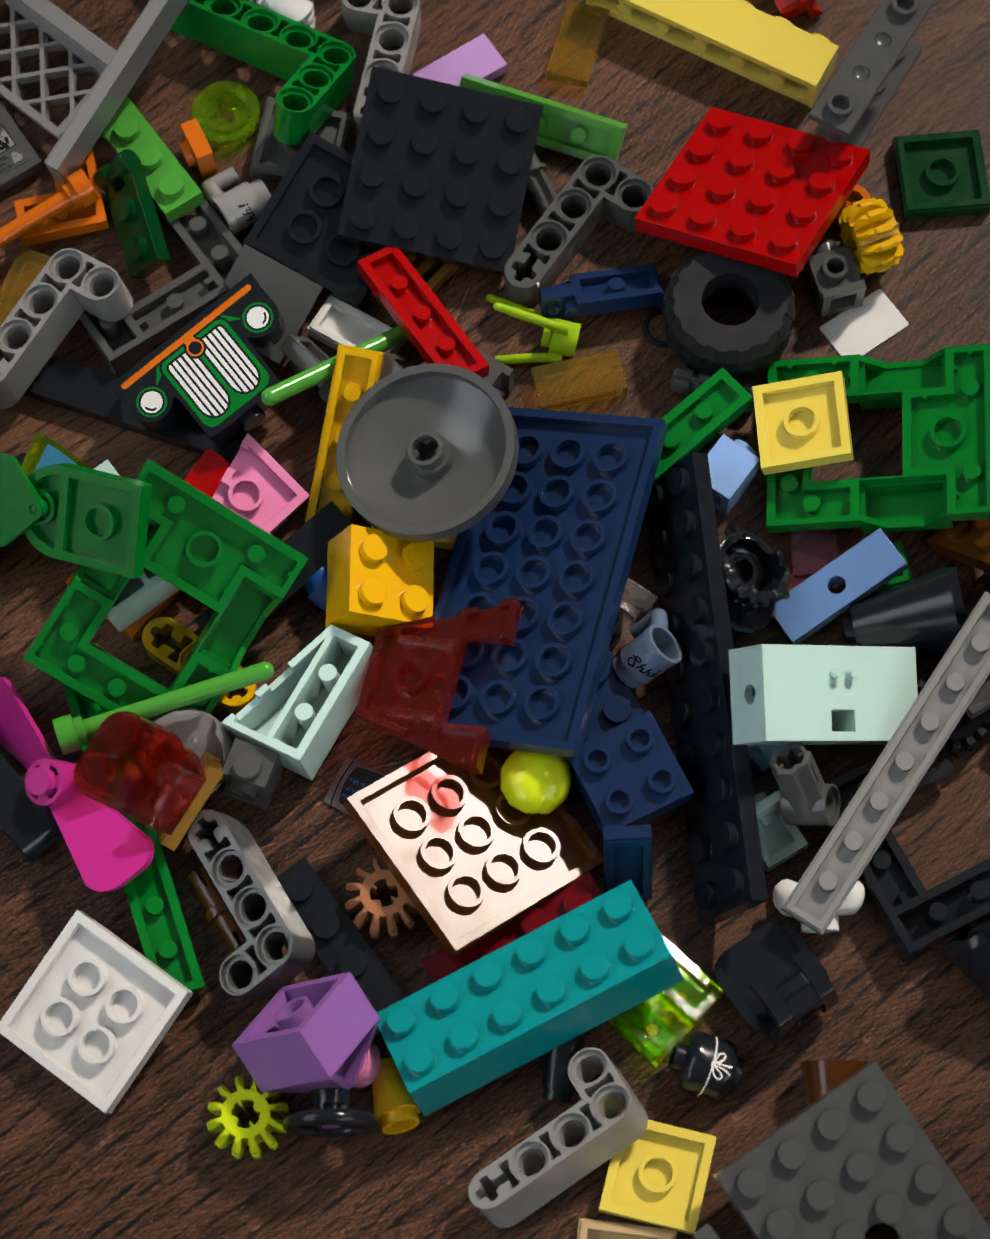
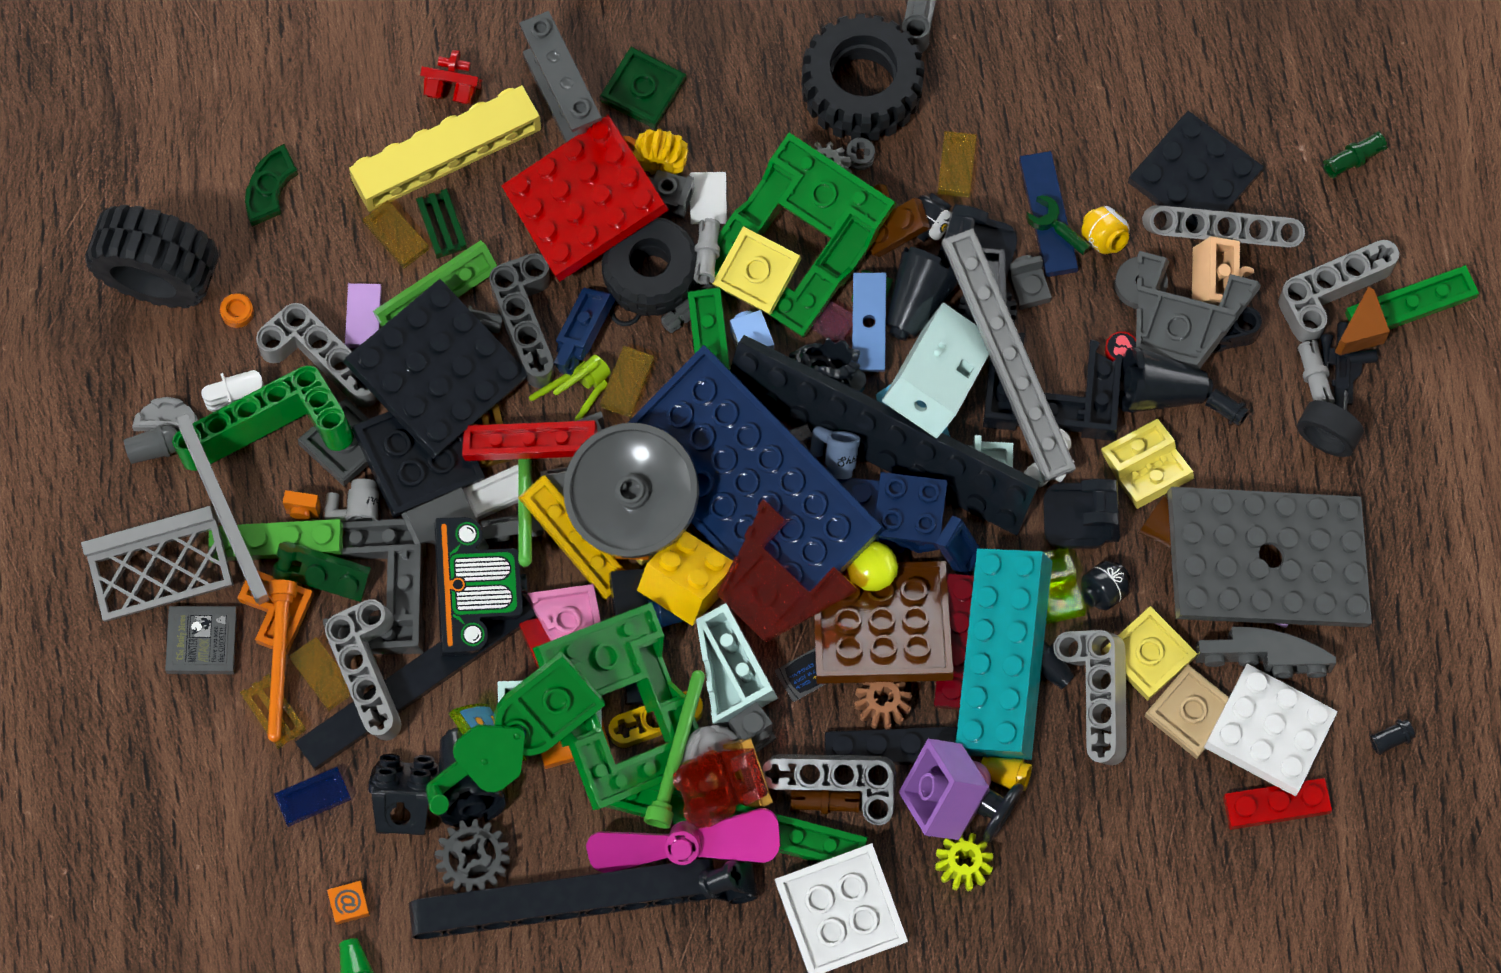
camera: 60 degrees left, 0 degrees up
(45, 862) = (730, 883): none -> black piece
(232, 97) = (275, 463): clear neon green gear -> none
(642, 54) = (434, 200): none -> dark green tile
(786, 356) = (707, 251): none -> light grey pin
(804, 794) = (986, 419): dark grey piece -> none
(901, 1020) = (1147, 463): none -> light yellow slope

